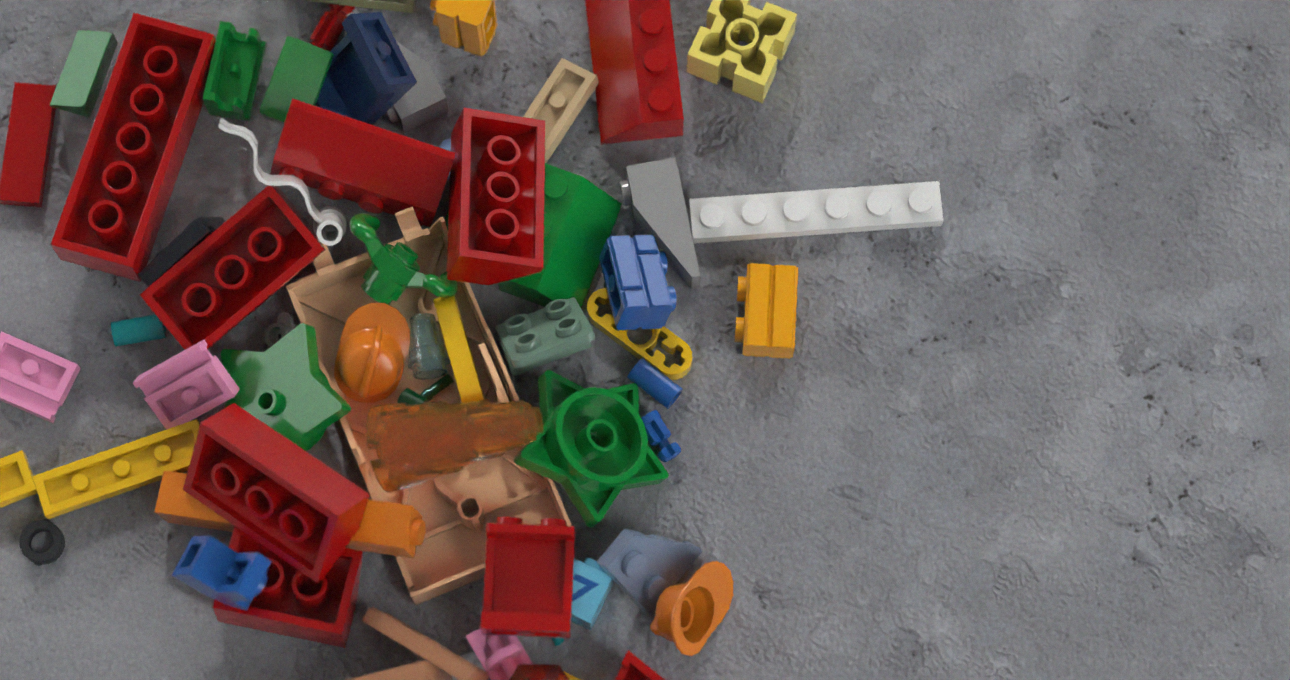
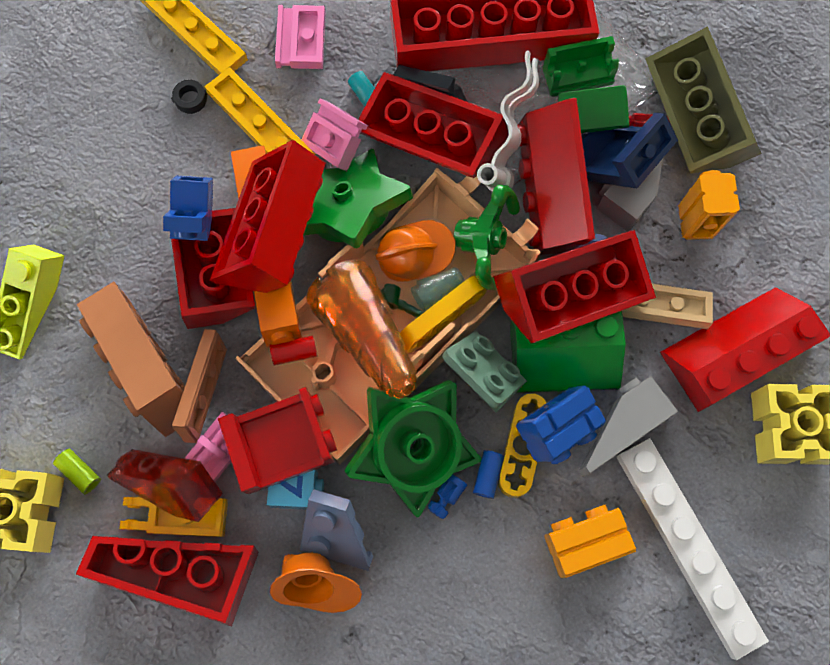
camera: 65 degrees right, 0 degrees up
(435, 526) = (293, 351): none -> red piece

